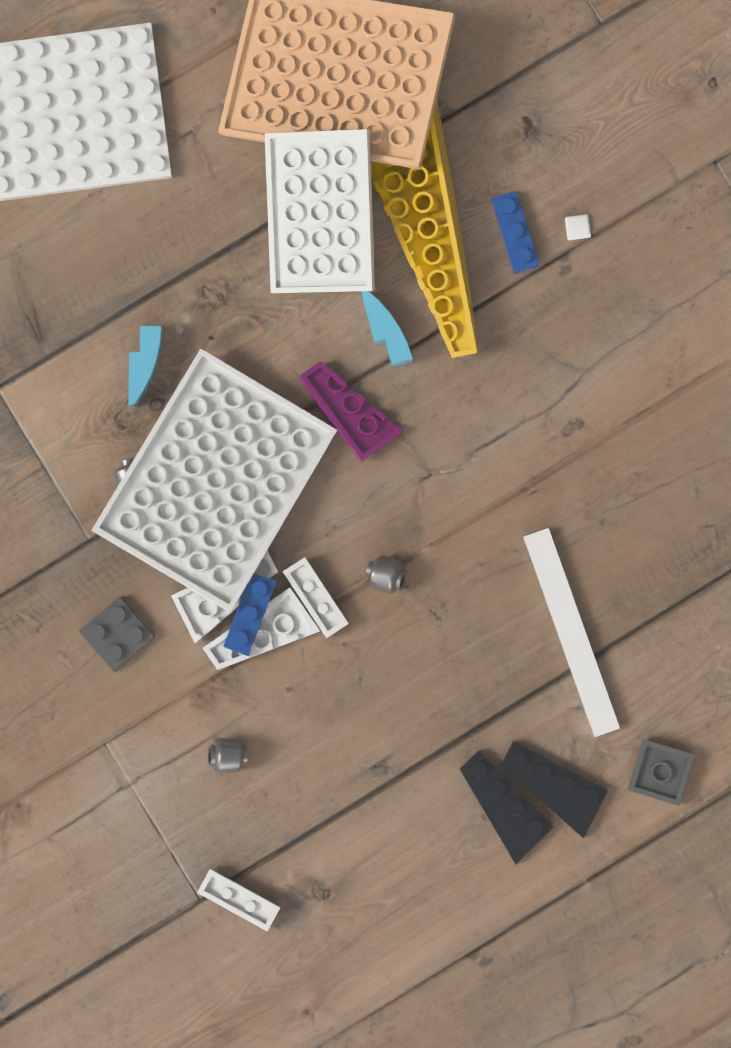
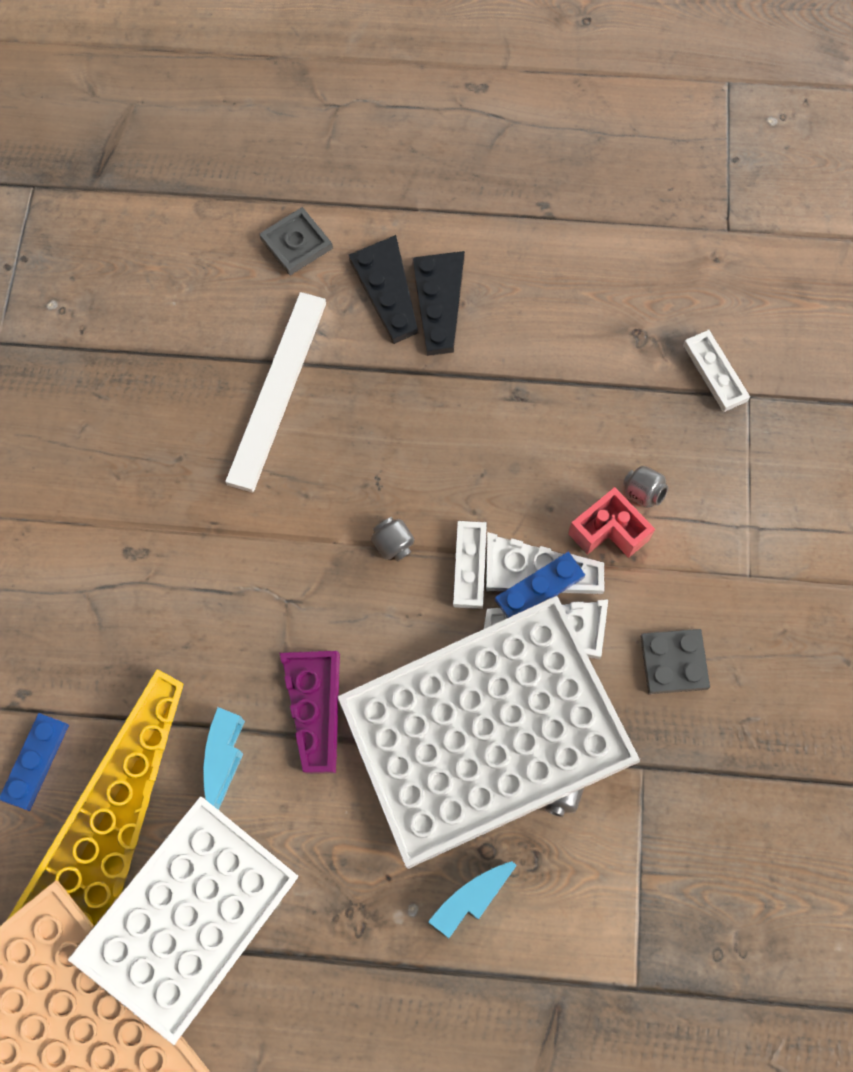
camera: 140 degrees left, 15 degrees down
(232, 709) = (612, 518): none -> coral brick

